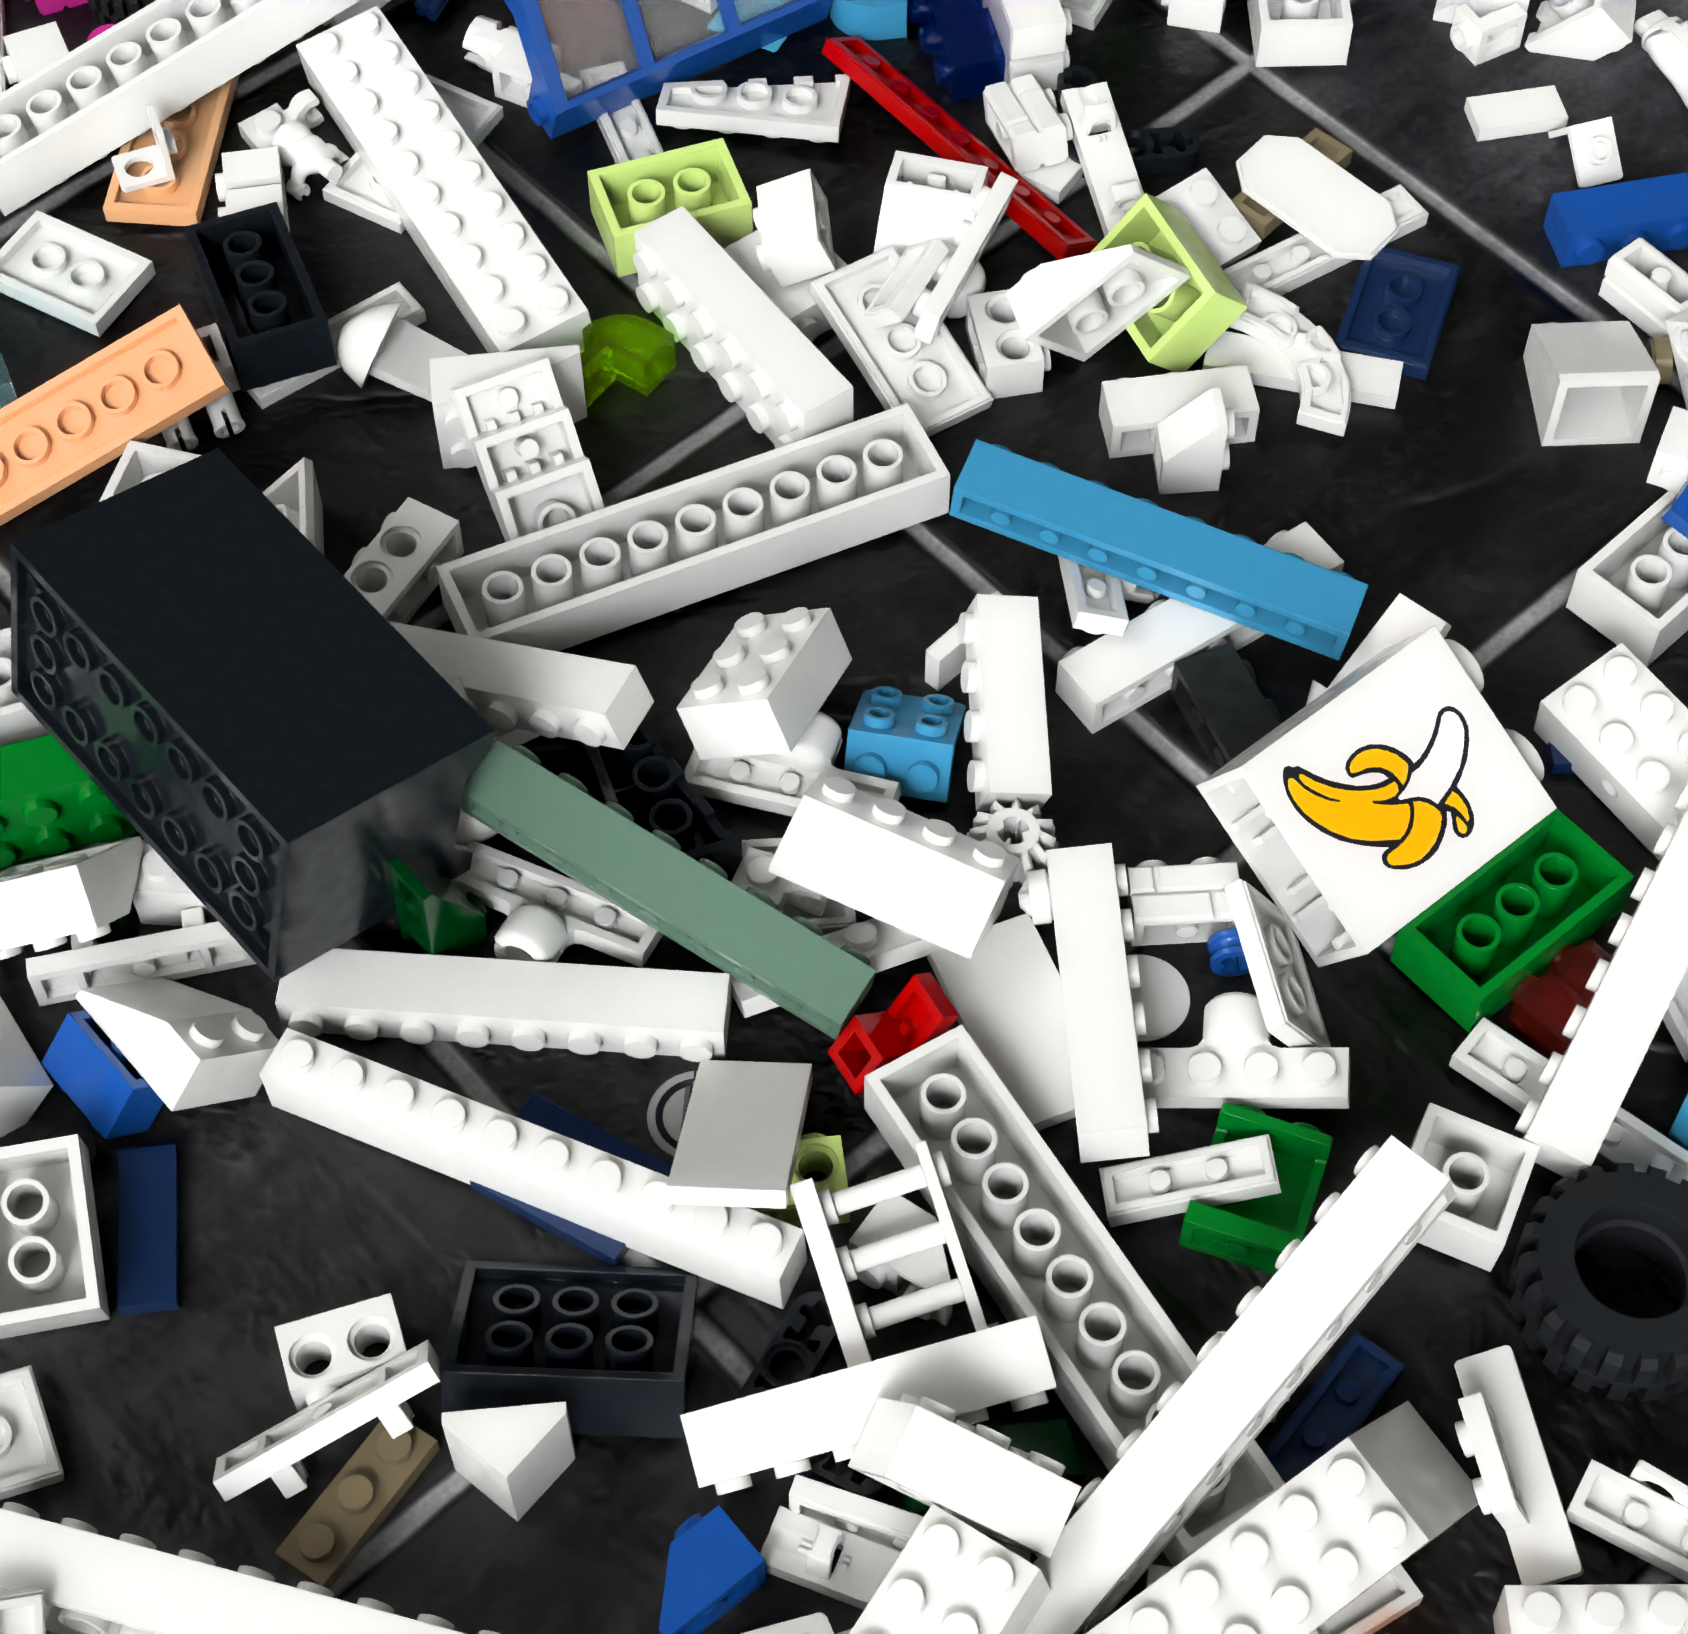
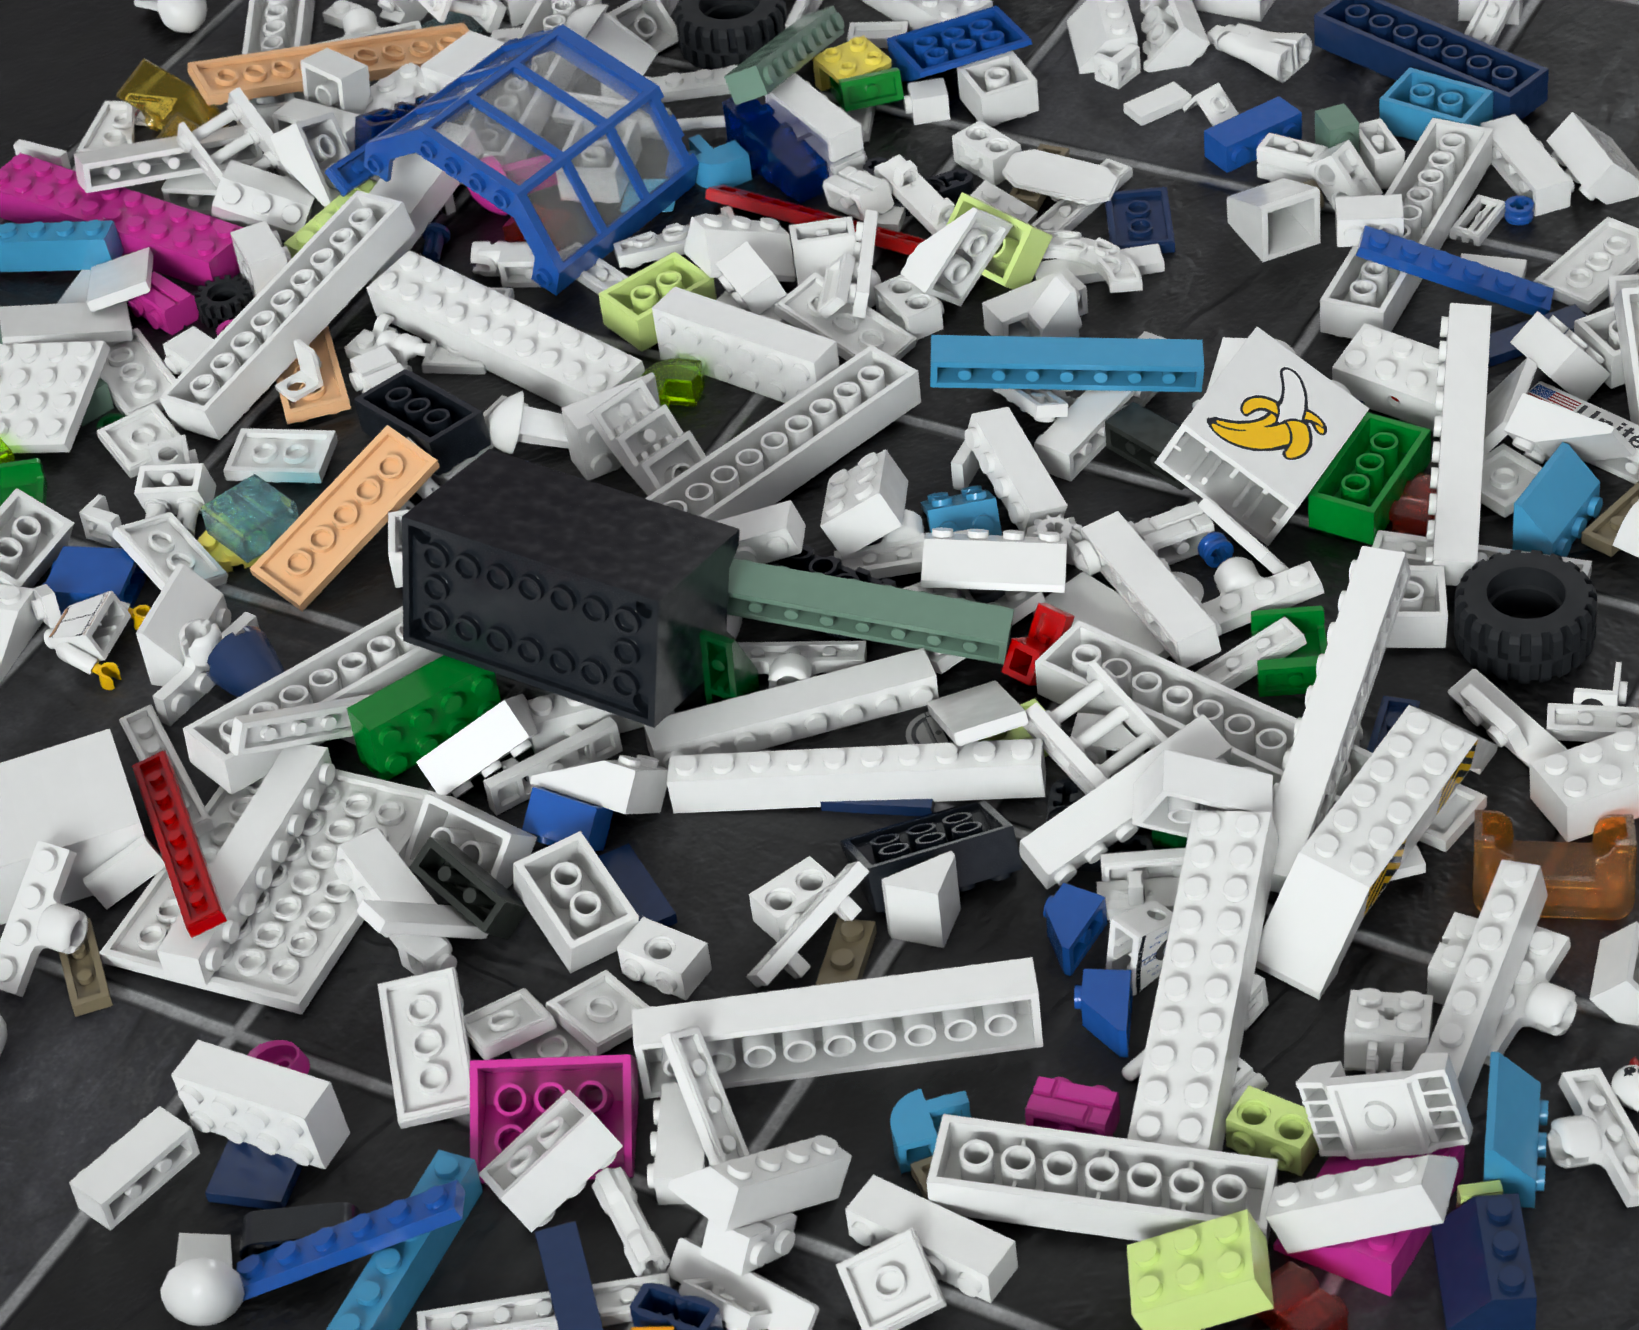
camera: 15 degrees left, 15 degrees down
(108, 1349) = (664, 958): none -> white brick
(843, 157) = (714, 238): none -> white slope
(1235, 110) = (984, 151): none -> white brick

